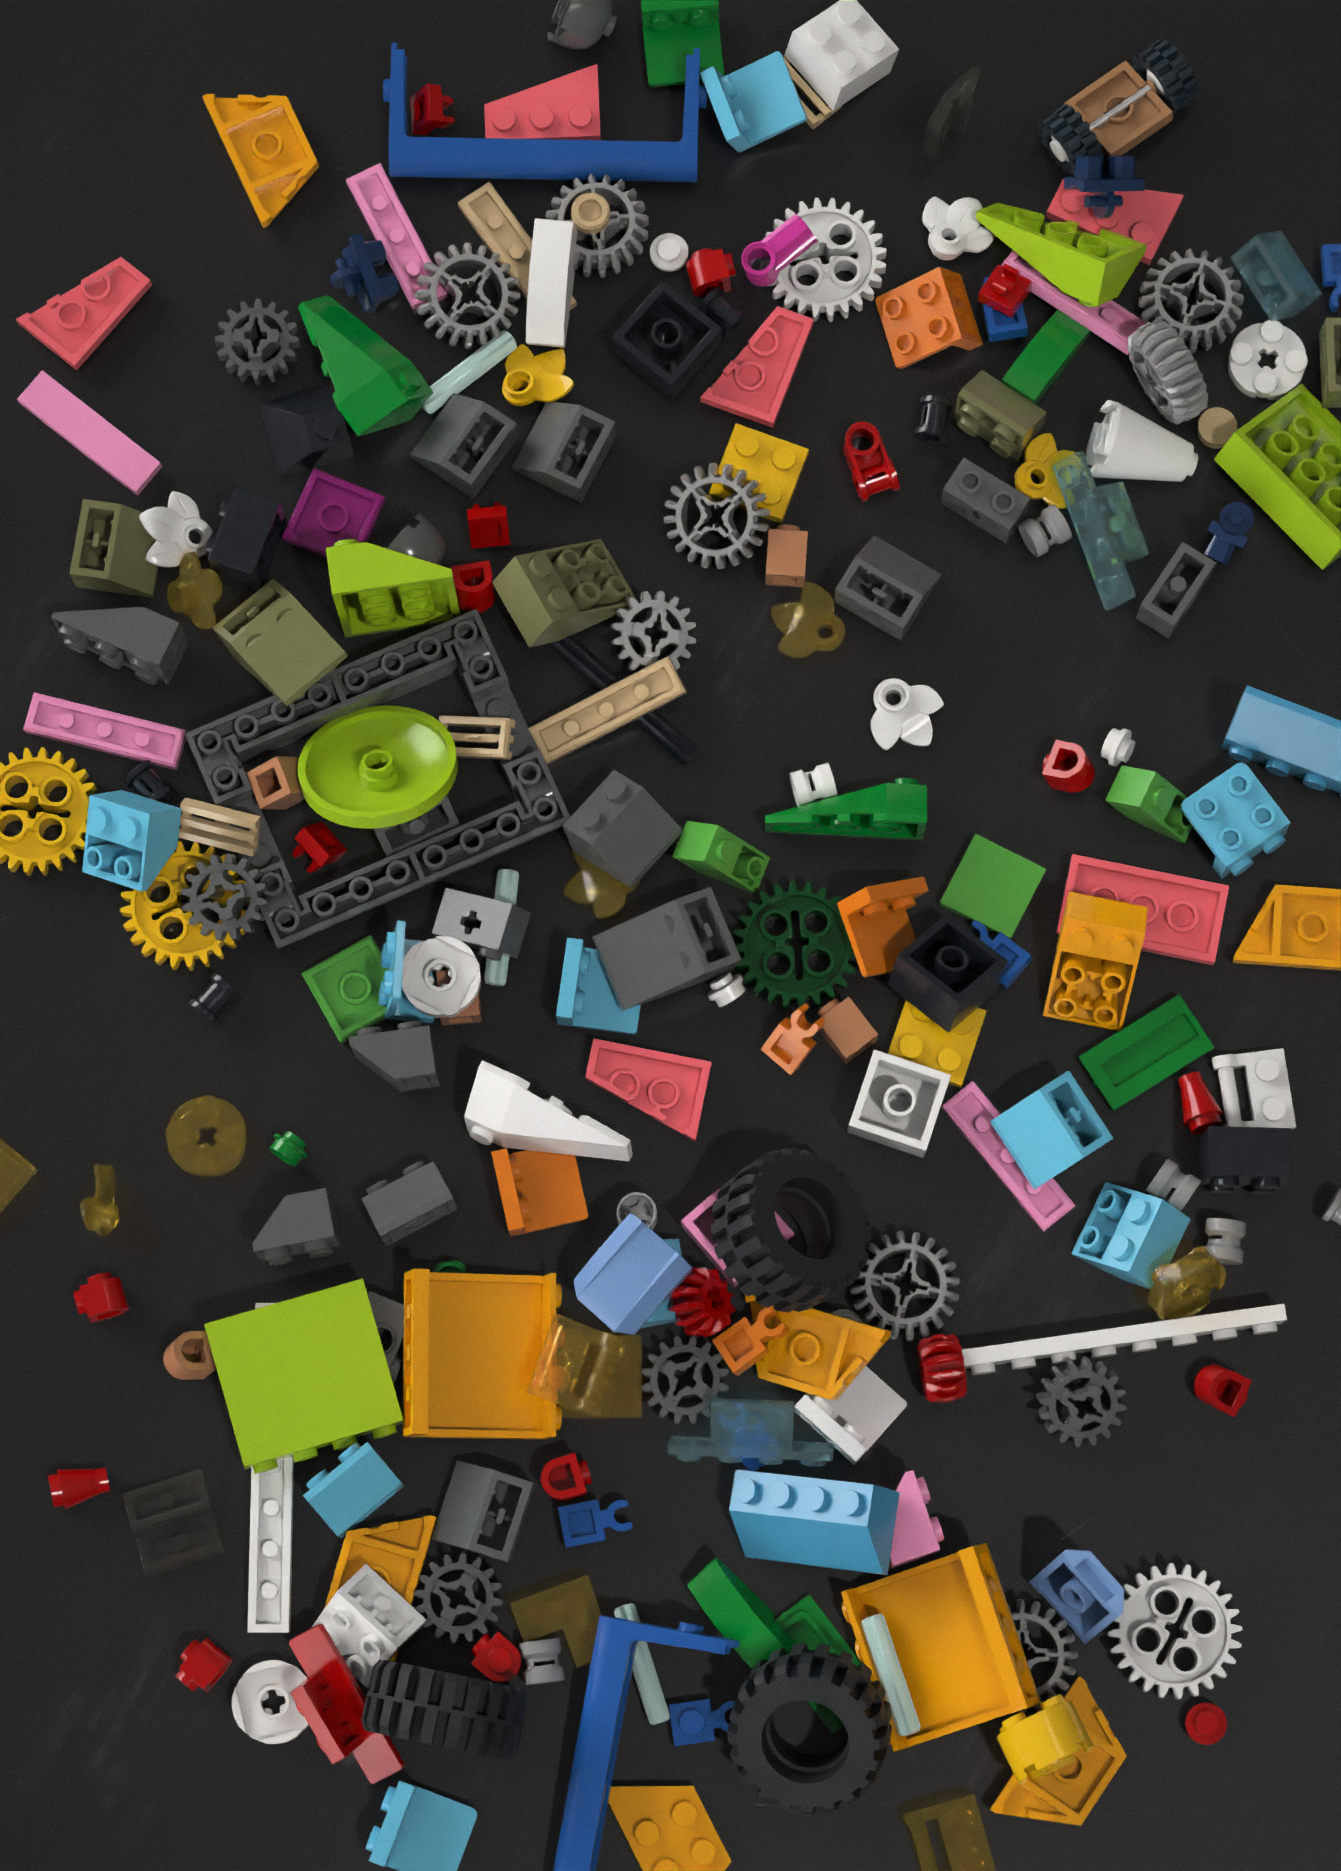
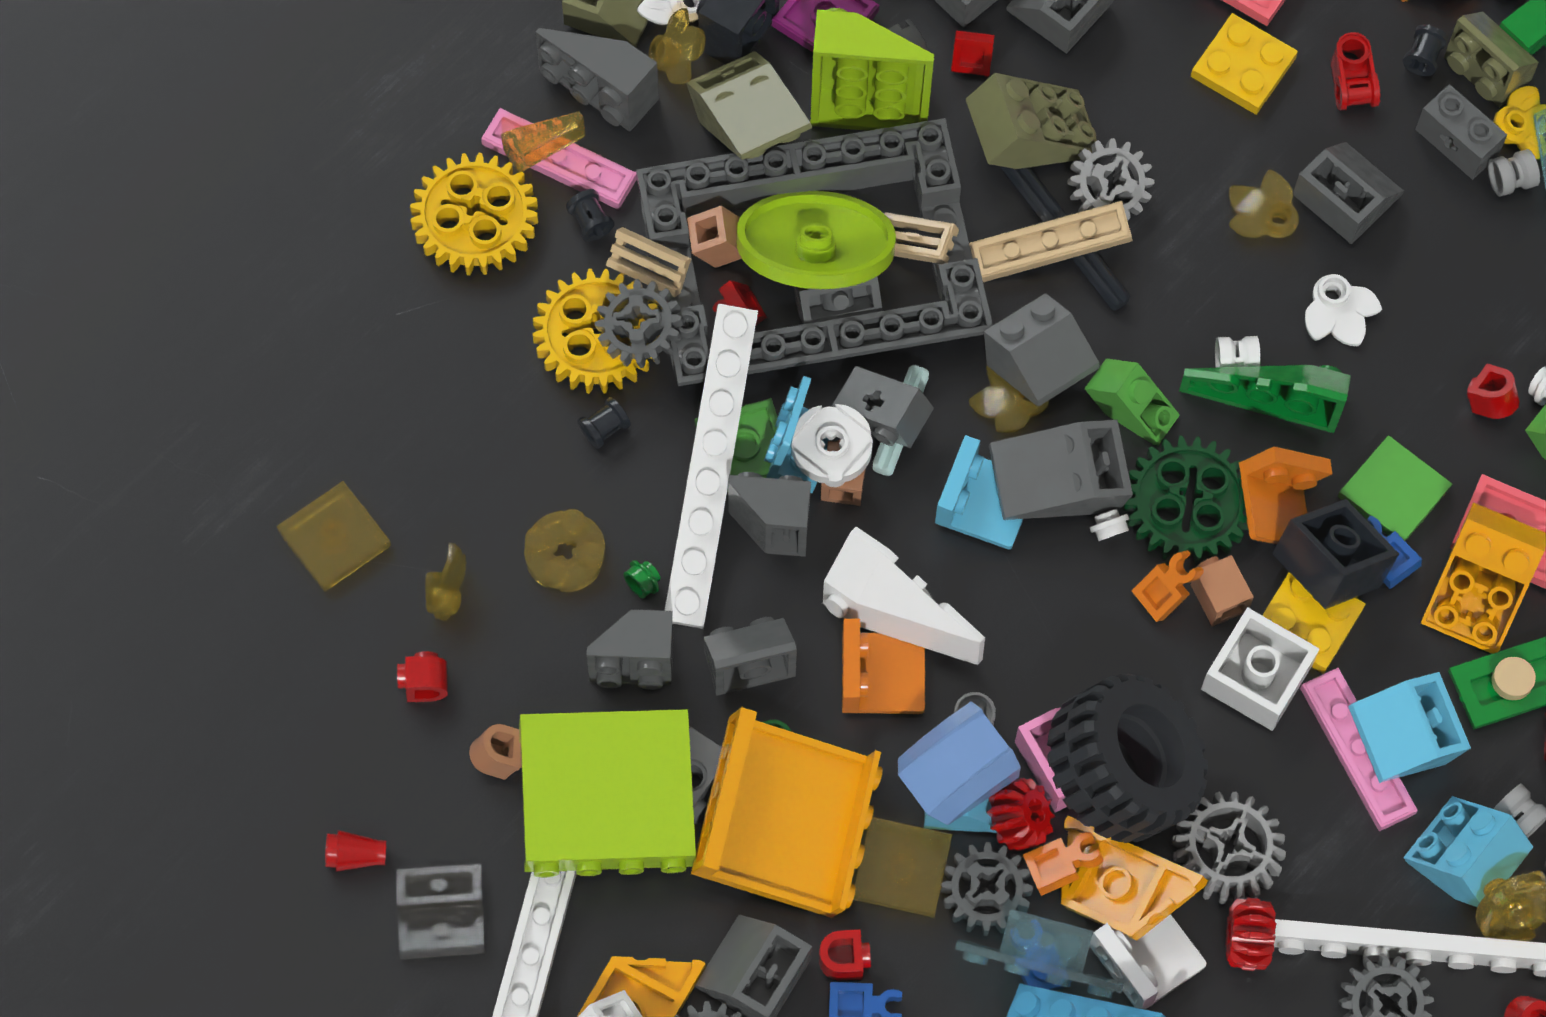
camera: 10 degrees right, 10 degrees down
(81, 724) = (540, 140): none -> clear yellow slope
(129, 838) = (558, 253): medium azure slope -> none
(328, 1023) = (710, 465): none -> white plate
(352, 1488) = (628, 913): medium azure slope -> none
(474, 586) = (951, 107): red plate -> none
(563, 1359) = (867, 839): clear yellow plate -> none
(652, 1081) = (1017, 597): coral wing -> none
(704, 501) = (1212, 80): light grey gear -> none
(786, 556) = (1255, 142): nougat brick -> none
(1141, 1055) = (1513, 678): none -> tan tile

